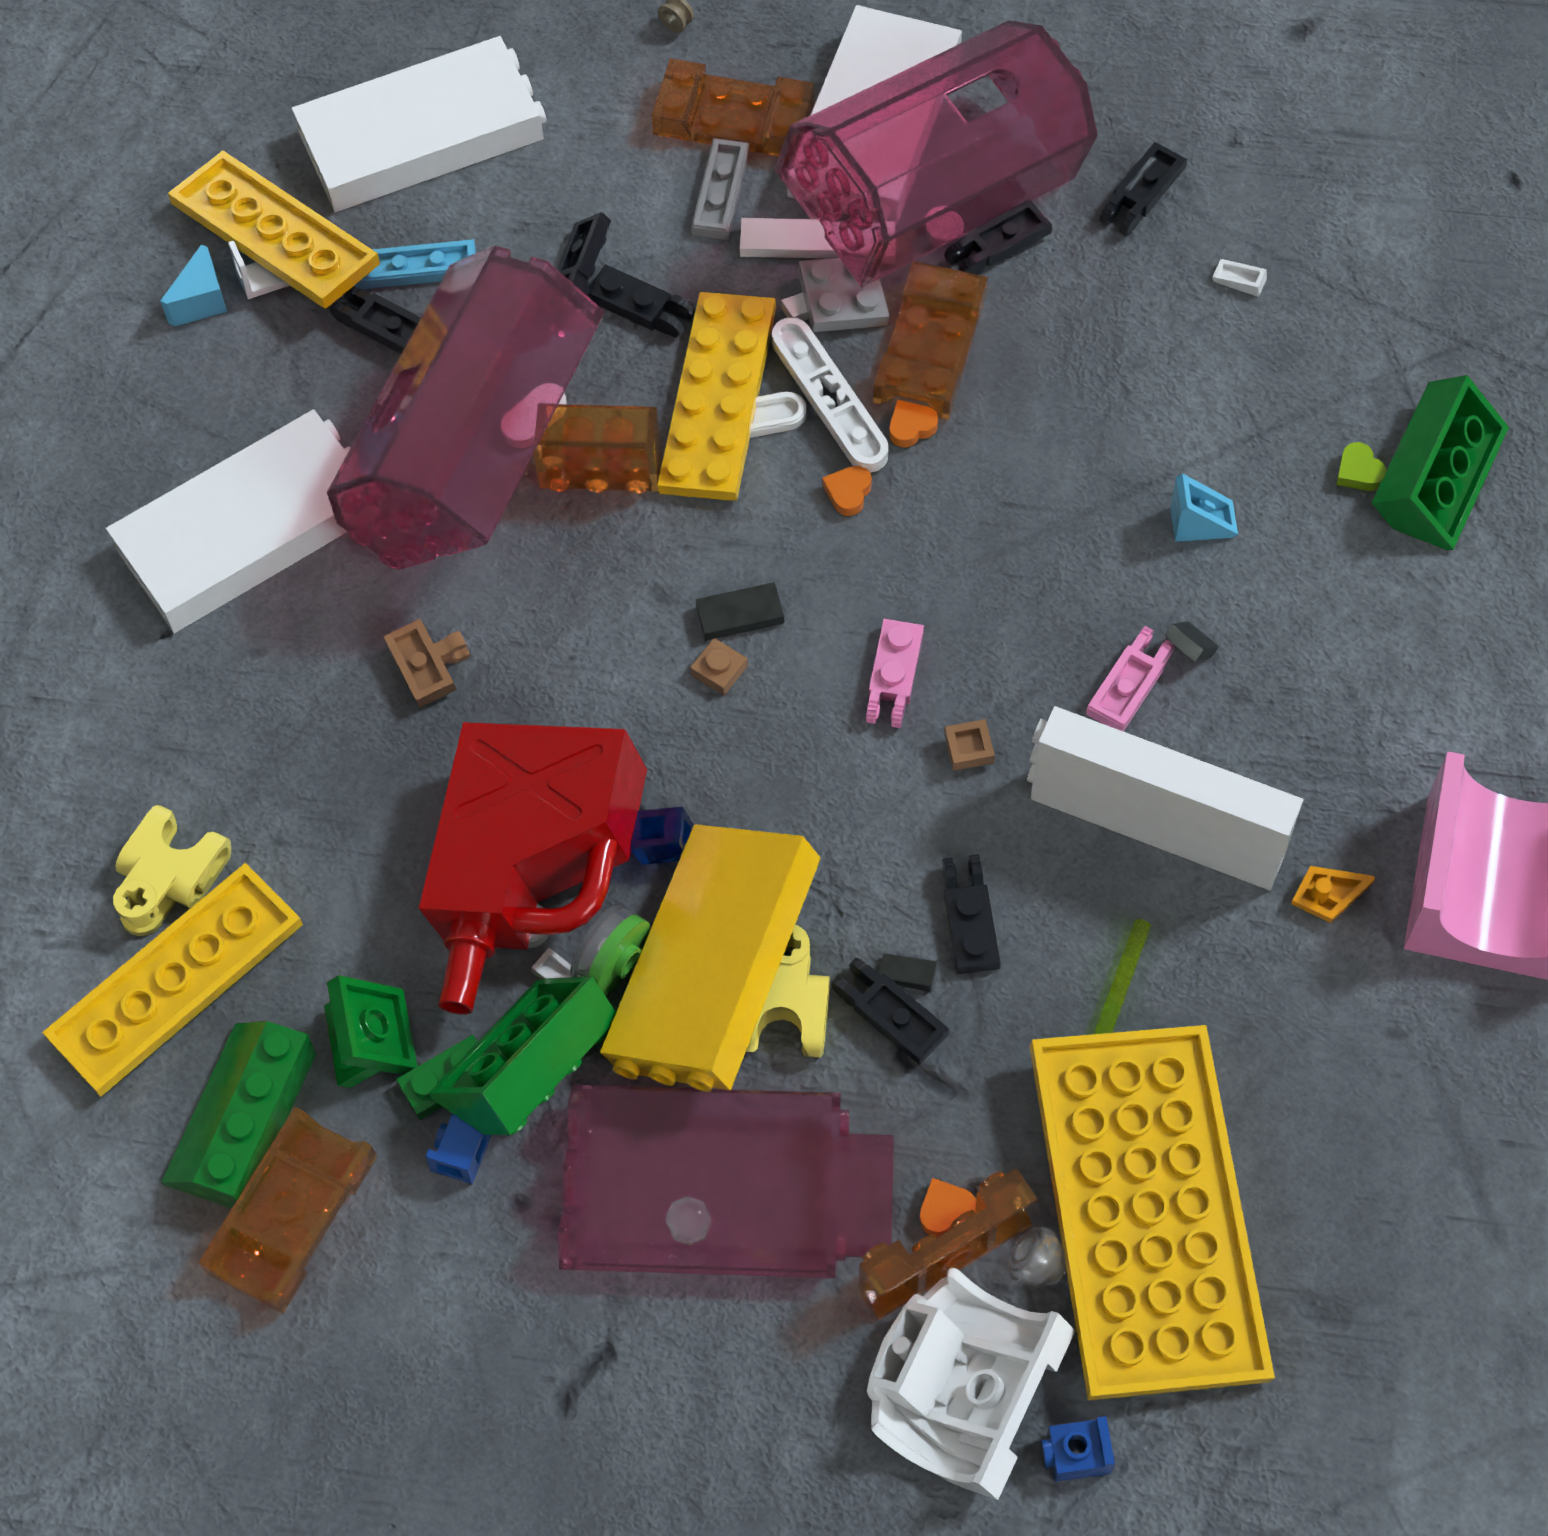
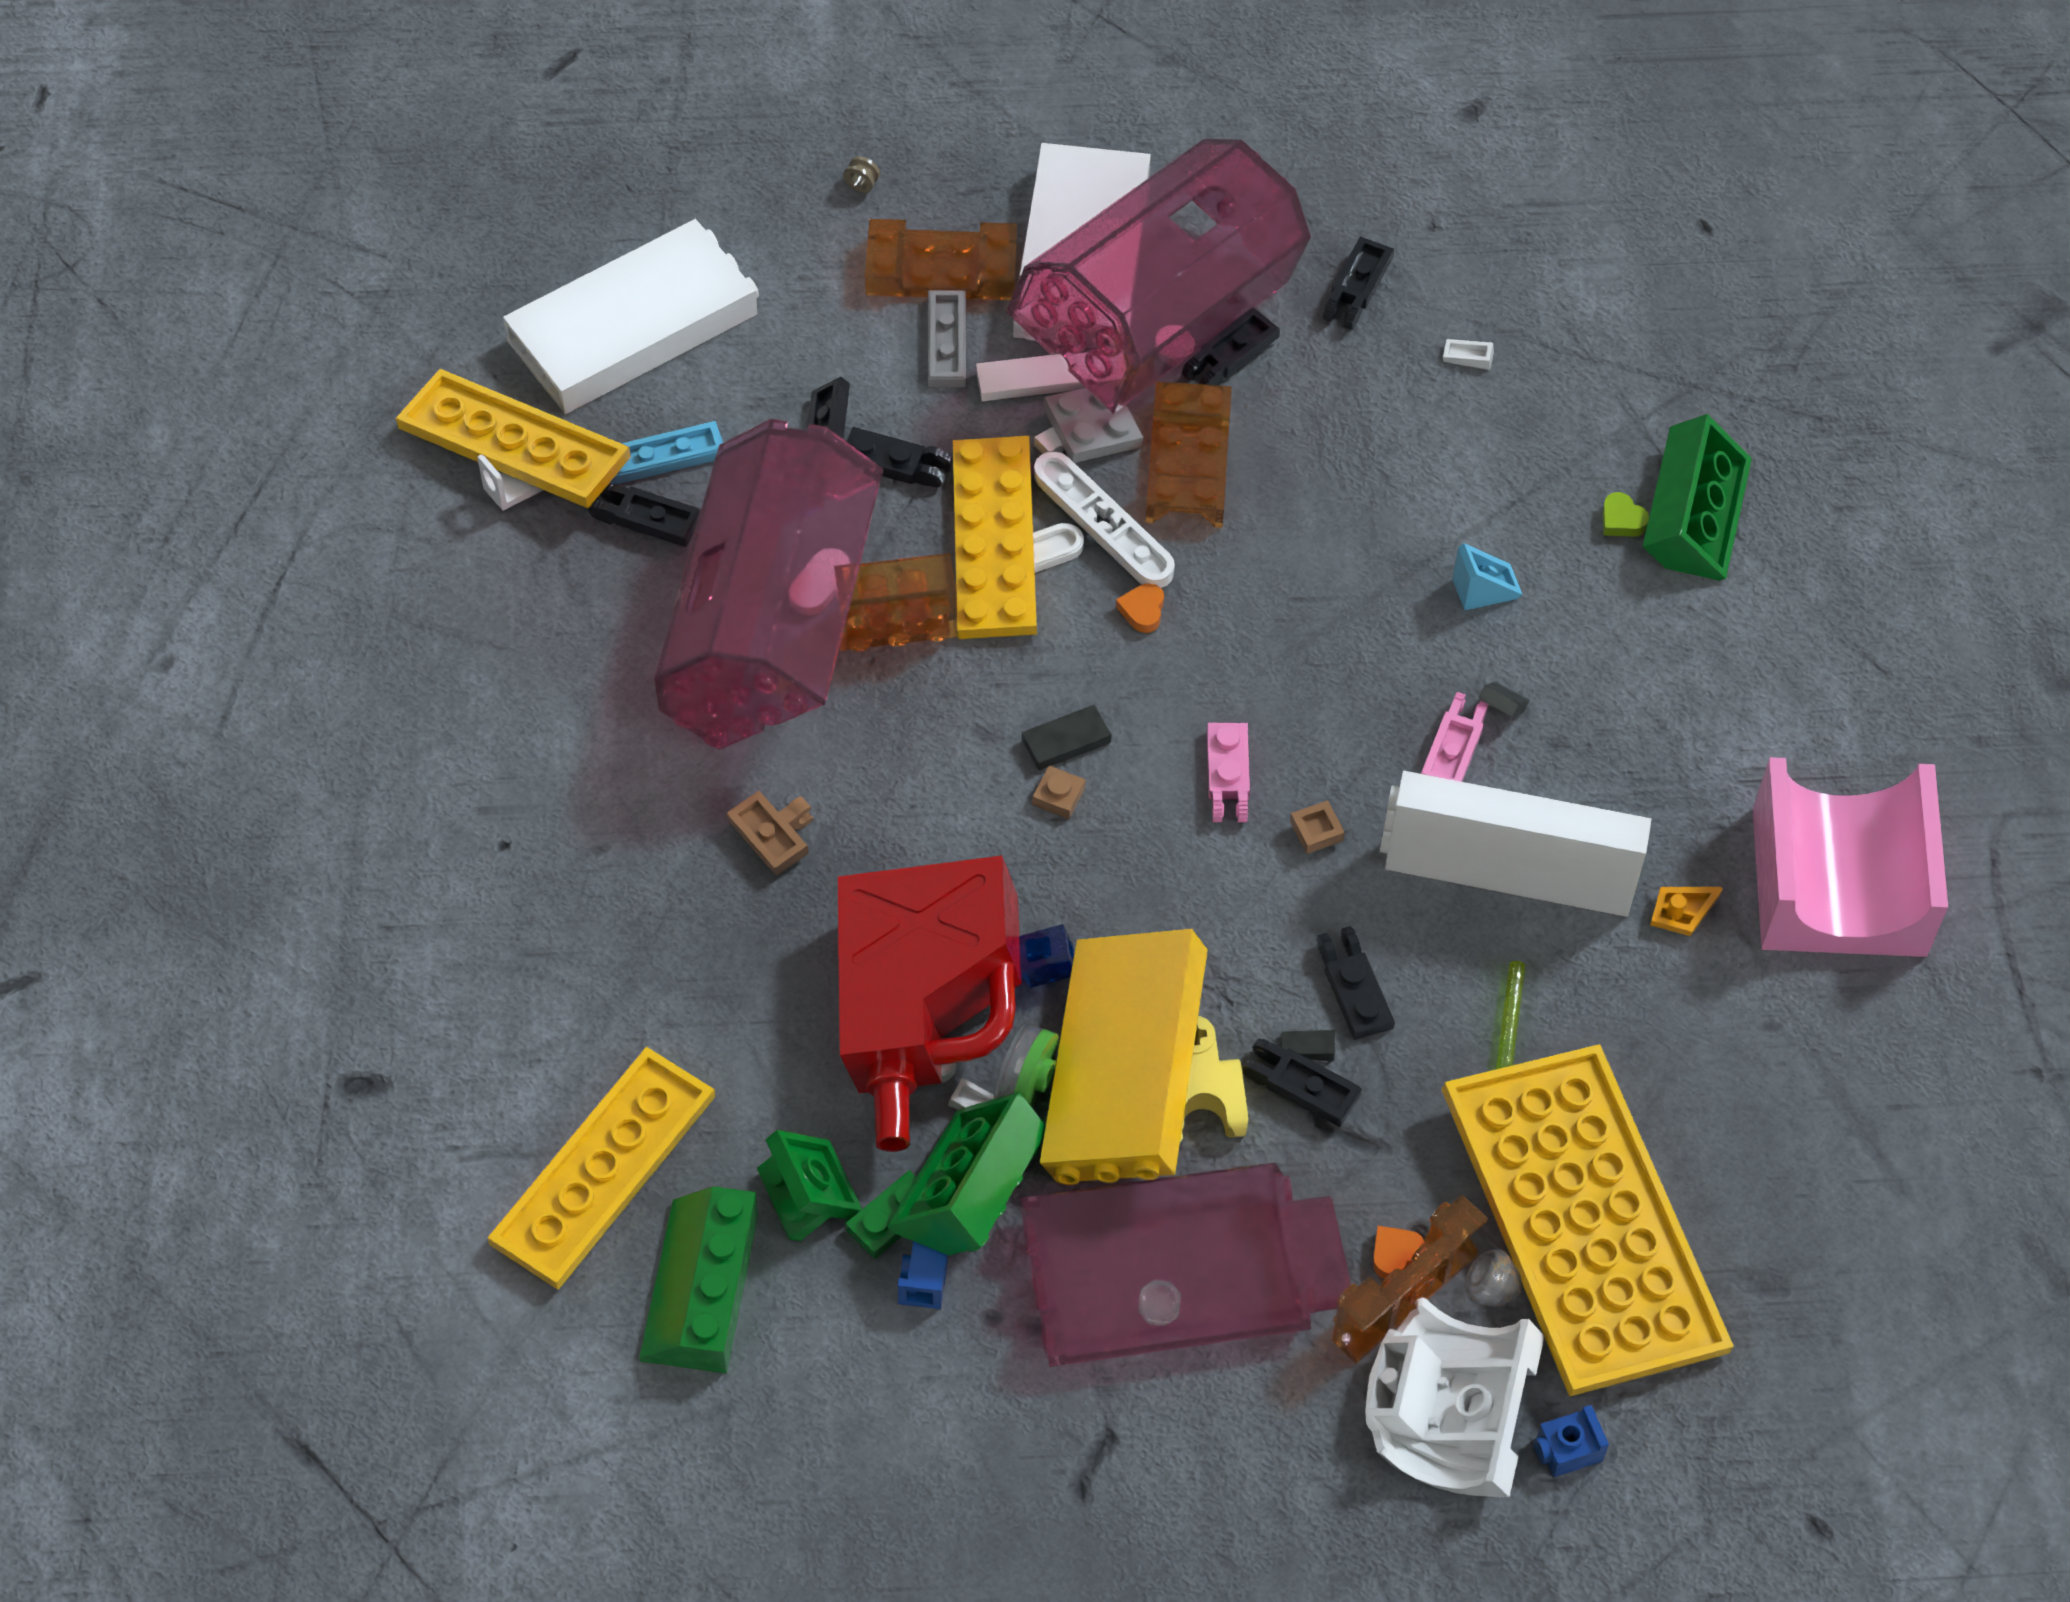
camera: 15 degrees left, 5 degrees down
(164, 875) = (566, 1069): light yellow piece -> none
(194, 292) = (450, 510): medium azure slope -> none
(235, 522) = (552, 725): white brick -> none
(286, 1210) = (773, 1361): clear orange piece -> none
(912, 422) = (1188, 536): orange tile -> none

